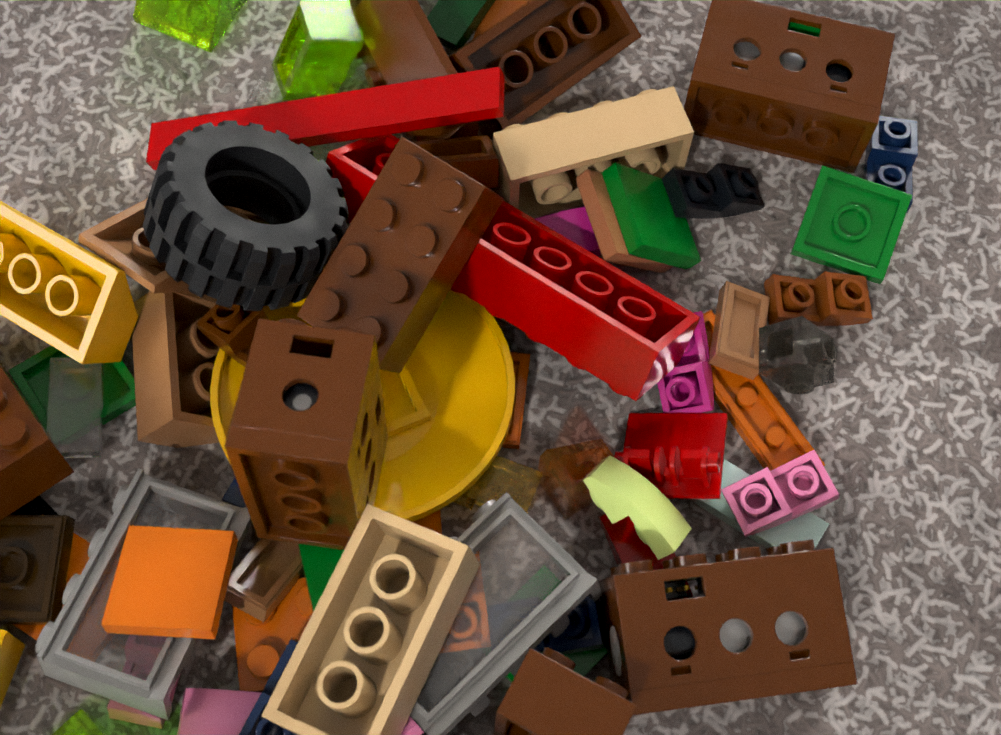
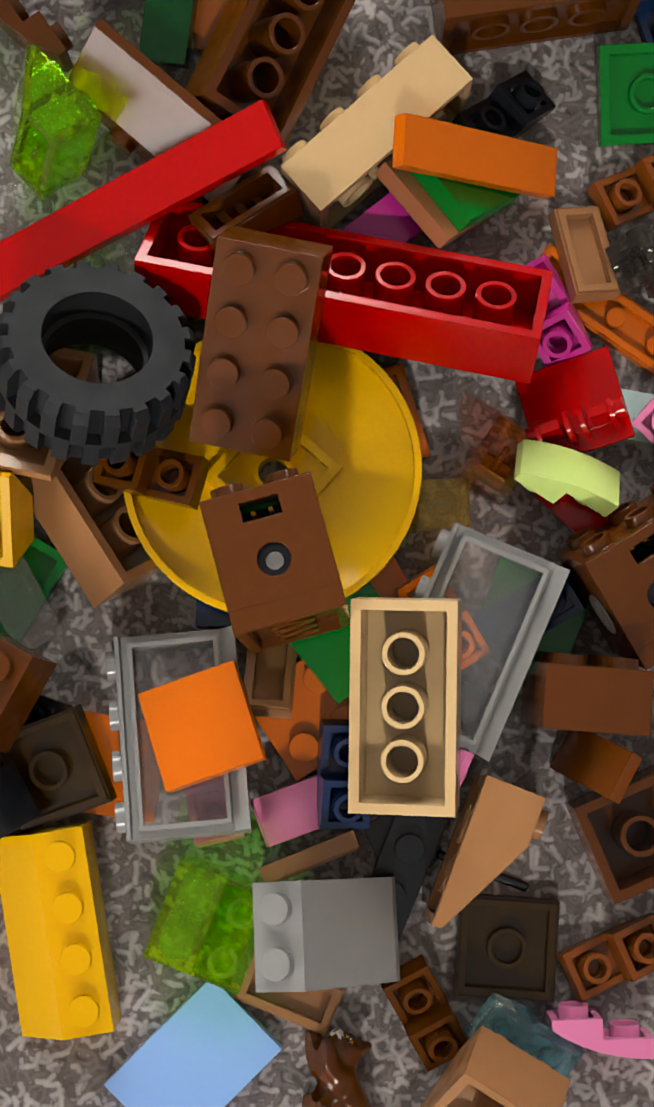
camera: 20 degrees left, 20 degrees up
(670, 200) = (473, 156): none -> orange tile

